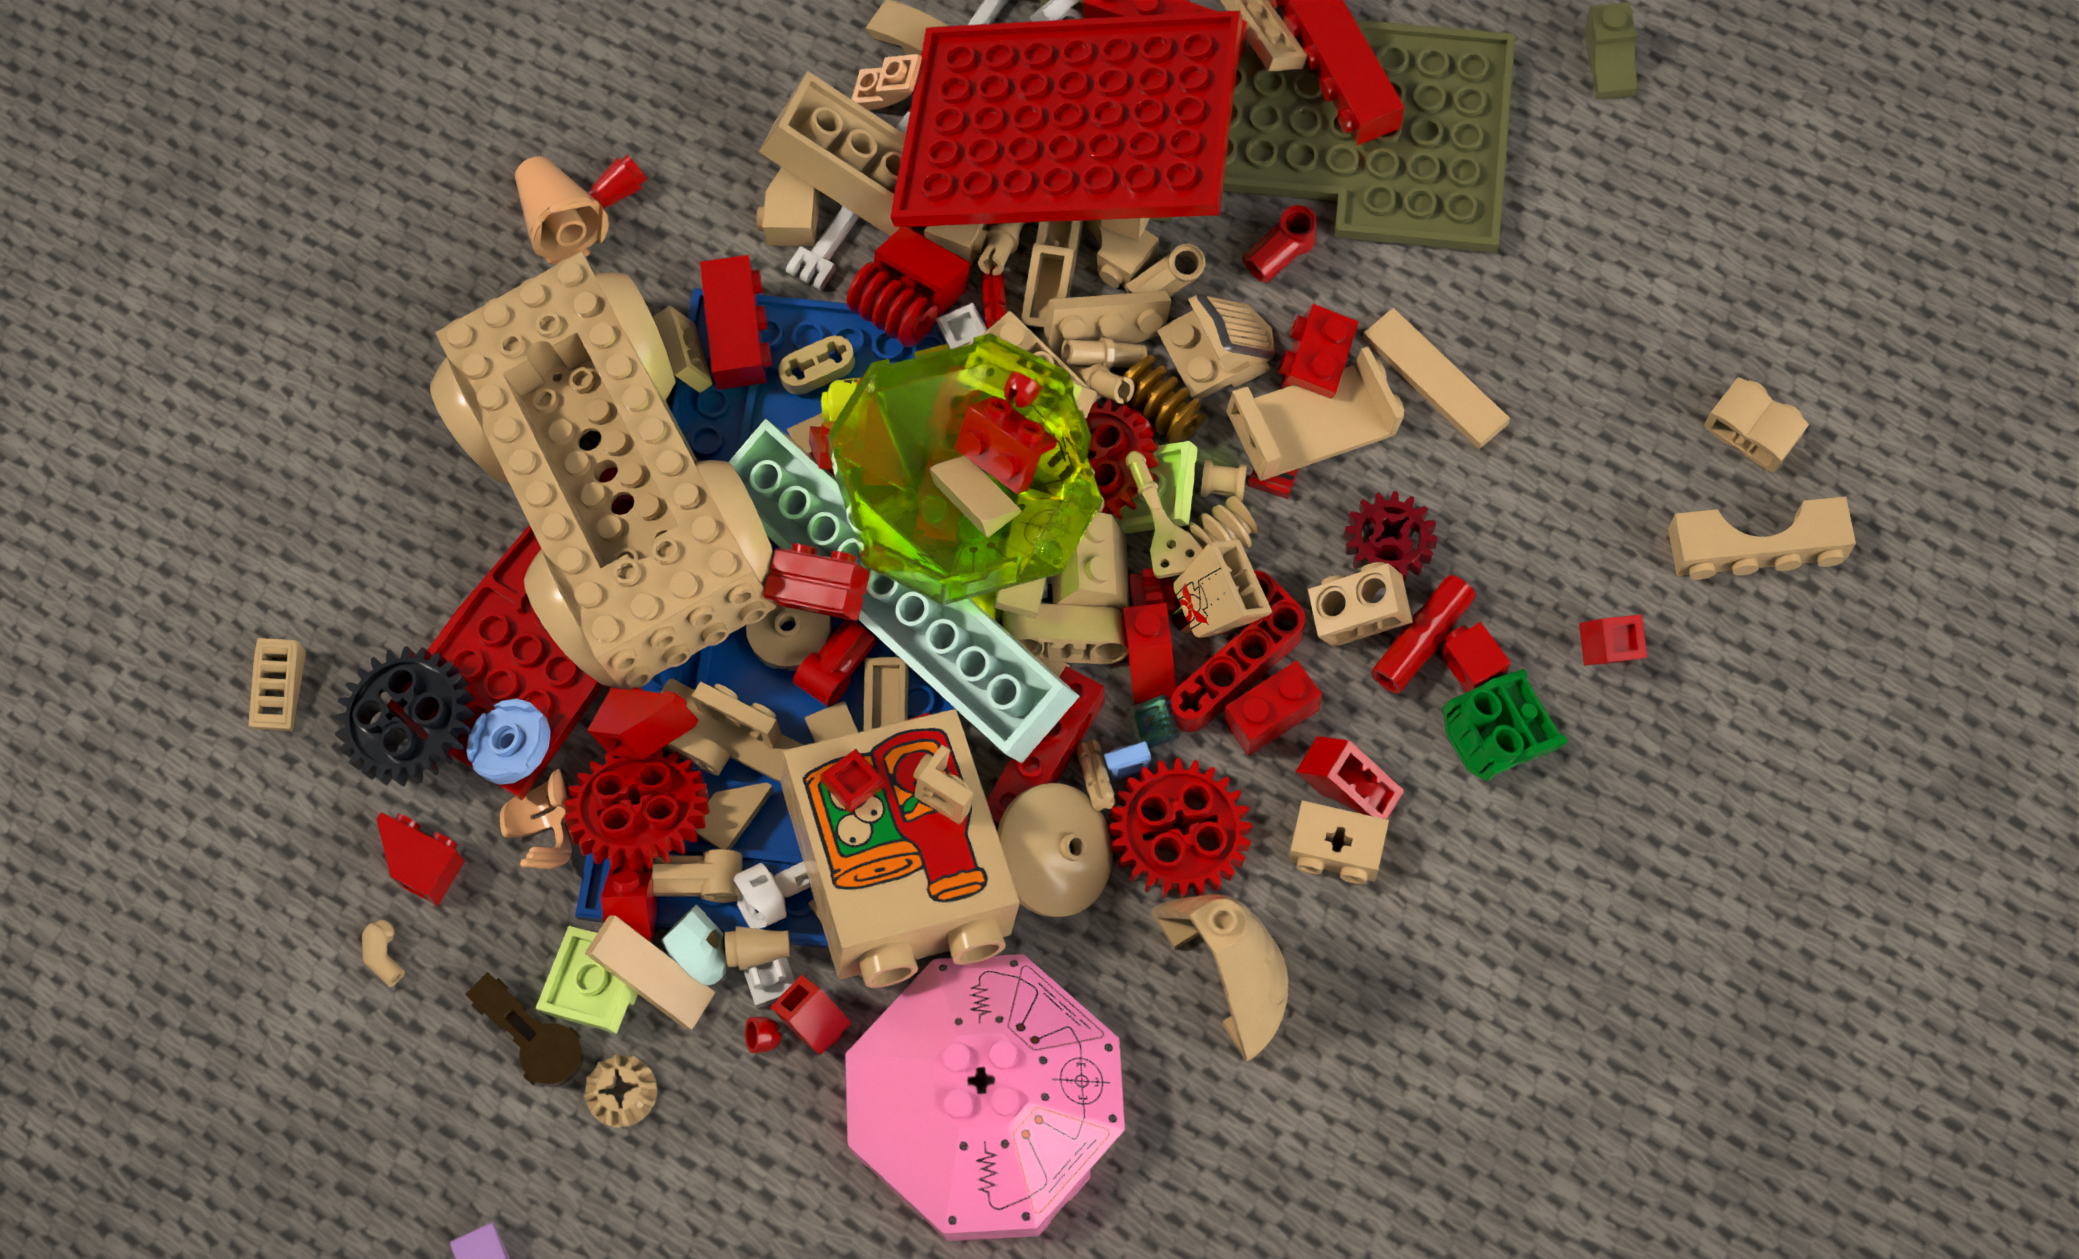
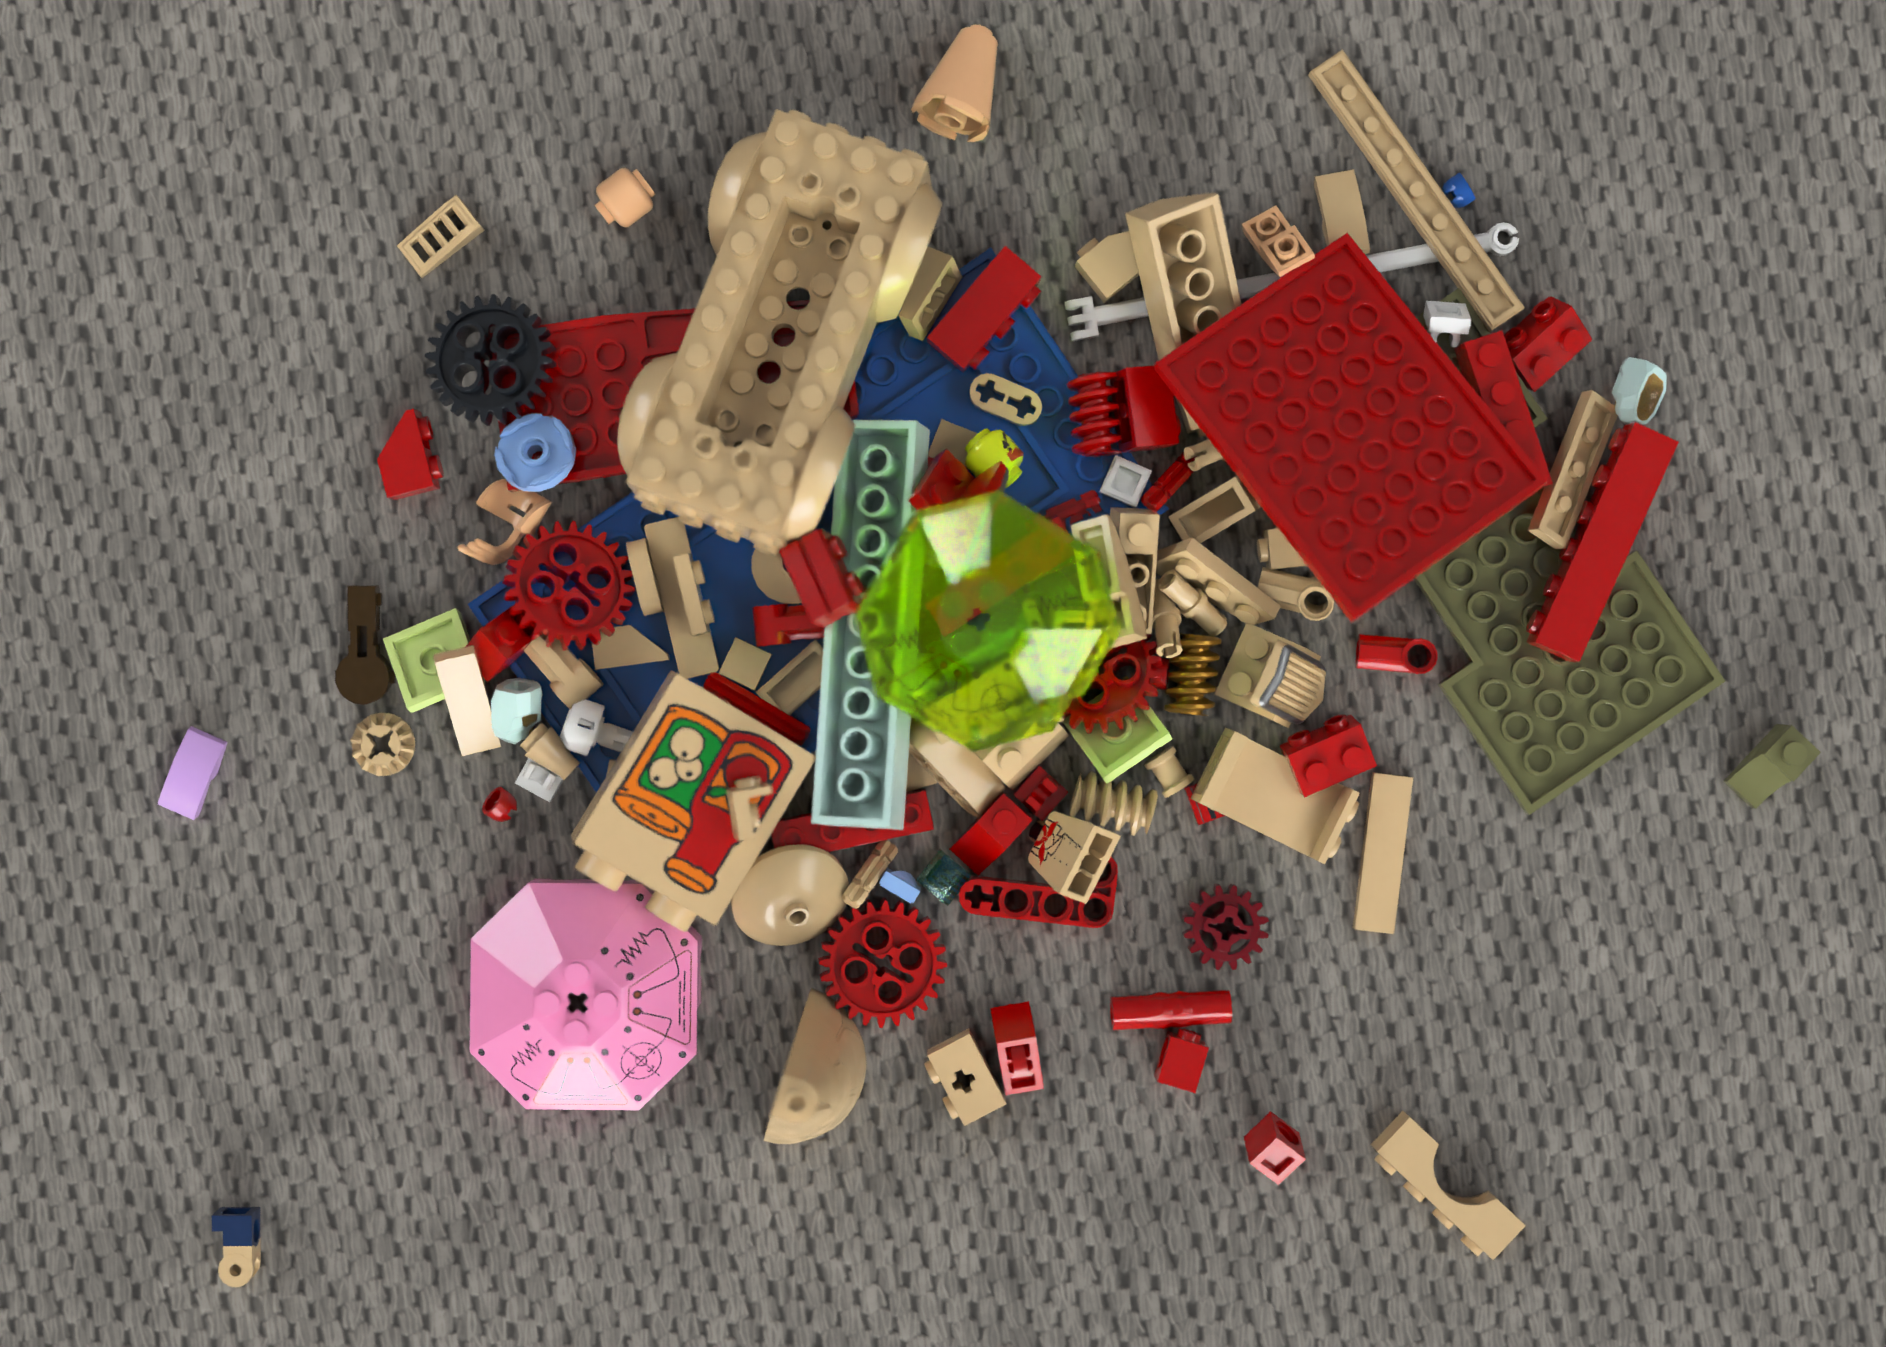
camera: 45 degrees right, 20 degrees up
(375, 952) = (325, 491): tan arm -> none
(388, 519) = (624, 197): none -> light nougat head
(618, 182) = (1025, 109): red cone -> none
(640, 721) = (622, 536): red slope -> none
(811, 1015) = (537, 830): red brick -> none
(852, 780) = (696, 741): red tile -> none
(974, 494) = (982, 633): tan slope -> none
(1003, 442) = (1037, 622): red bracket -> none
(1021, 390) = (1086, 603): red hinge -> none
(1165, 530) = (1085, 773): tan piece -> none
(1272, 708) = (1023, 953): red brick -> none
(1360, 615) = (1147, 957): tan brick -> none
(1500, 726) = (1149, 1127): green slope -> none
(1756, 424) = (1537, 1113): tan brick -> none

